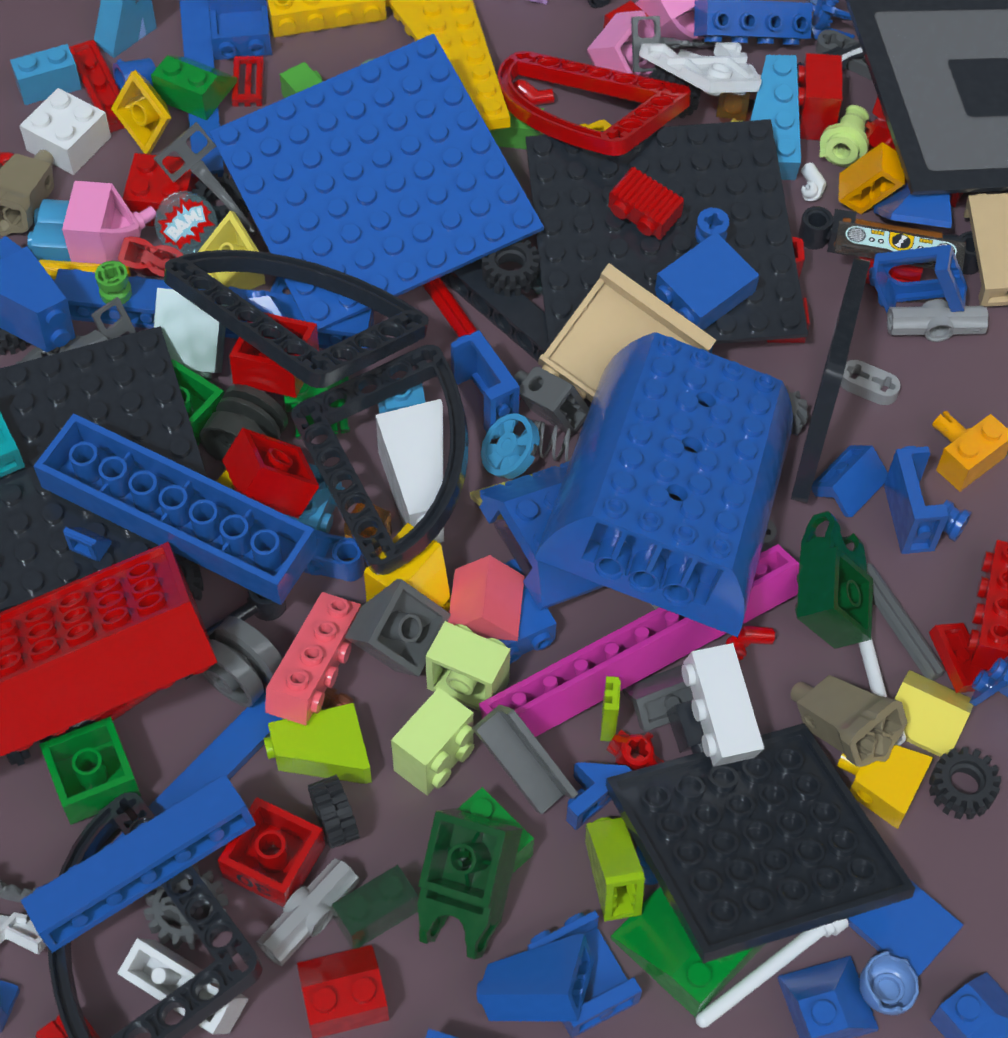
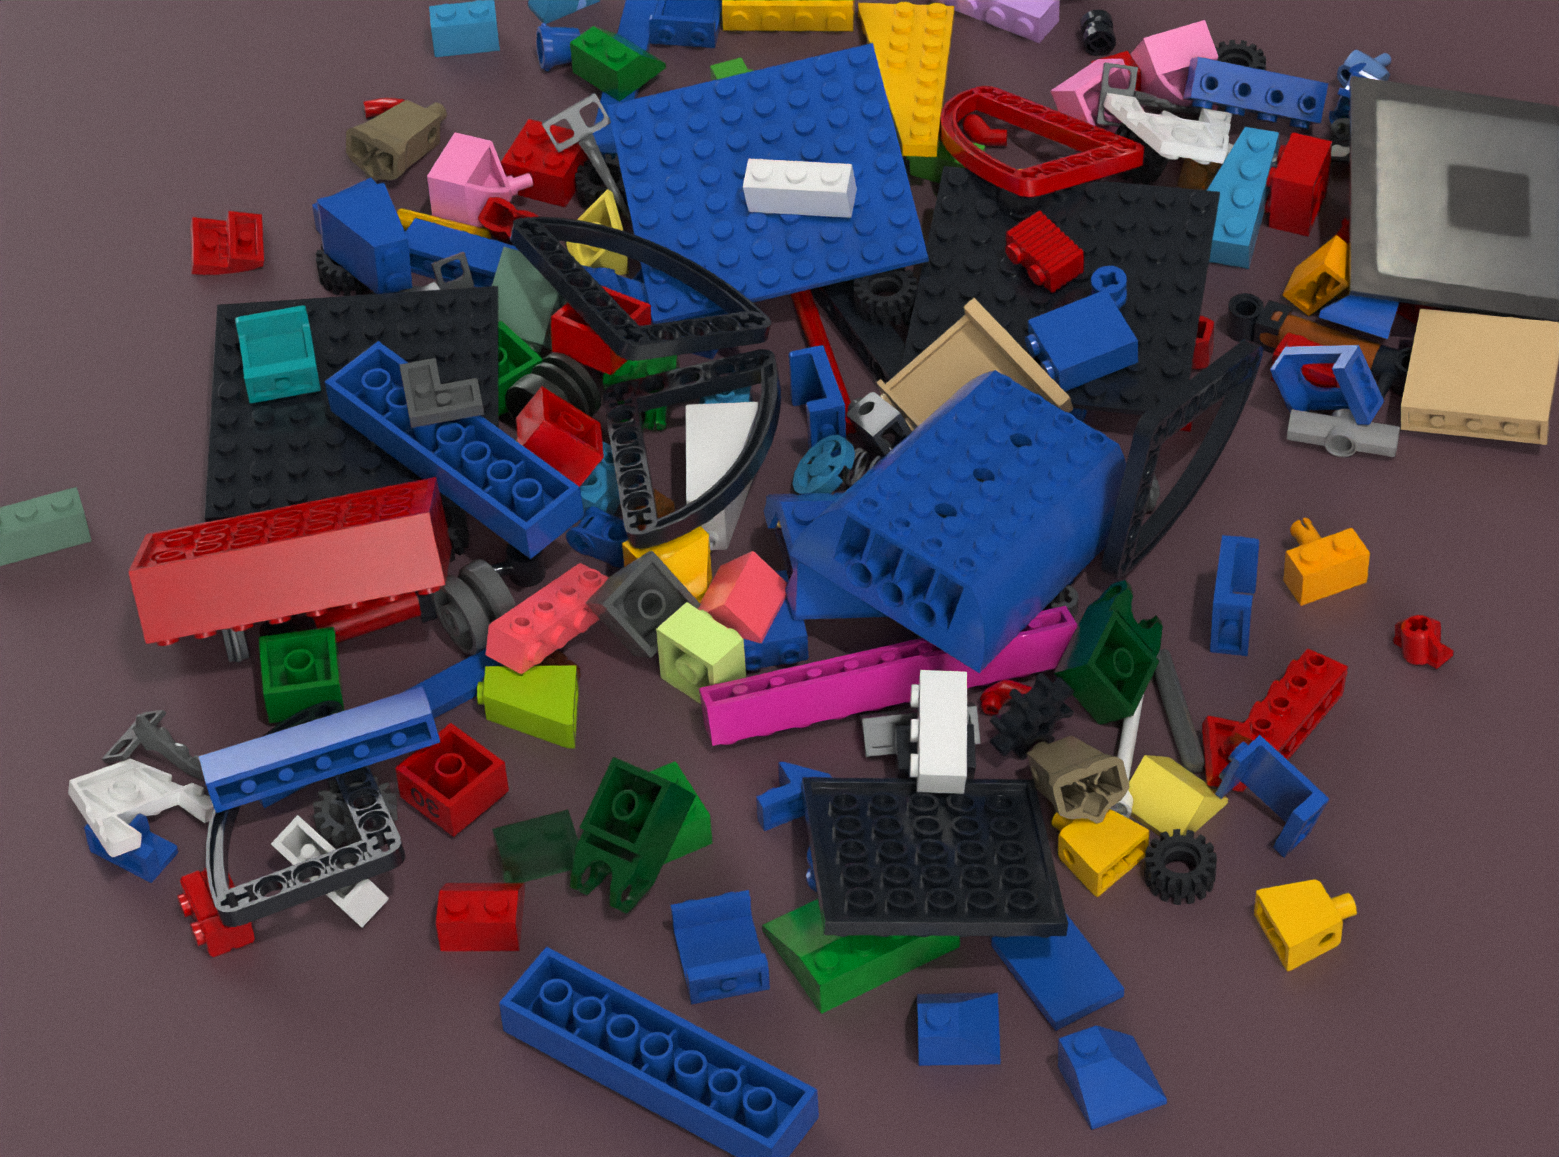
camera: 20 degrees right, 10 degrees down
(47, 237) = (412, 189): dark azure brick -> none
(66, 129) = (468, 87): white brick -> none
(86, 542) = (357, 467): blue slope -> none
(97, 80) = (519, 50): red tile -> none
(113, 281) = (464, 236): bright green wheel -> none
(141, 111) = (550, 77): yellow slope -> none
(147, 469) = (436, 402): none -> dark grey plate
(185, 221) = (560, 191): tile -> none
(247, 98) = (661, 82): red tile -> none
(307, 912) = (466, 840): light grey piece -> none
(333, 811) = (523, 756): black tyre -> none
(414, 183) = (800, 188): none -> white brick
(433, 742) = (643, 714): yellowish green brick -> none
(523, 758) = (725, 745): dark grey panel -> none
(538, 983) = (670, 938): blue slope -> none
(610, 708) = (832, 721): lime tile -> none
(615, 868) = (782, 863): lime slope -> none
(633, 750) = (845, 762): red piece -> none
(766, 970) = (984, 957): white piece -> none
(788, 664) = (1032, 716): none -> black gear
(815, 183) = (1265, 276): white arm -> none
(846, 141) = (1312, 230): yellowish green piece -> none
(852, 478) = (1182, 569): blue panel -> none
(869, 240) = (1280, 332): tile -> none
(870, 382) = (1243, 481): light grey beam -> none
(889, 984) = (1021, 1017): medium blue hair -> none
(956, 521) = (1272, 626): blue wheel -> none

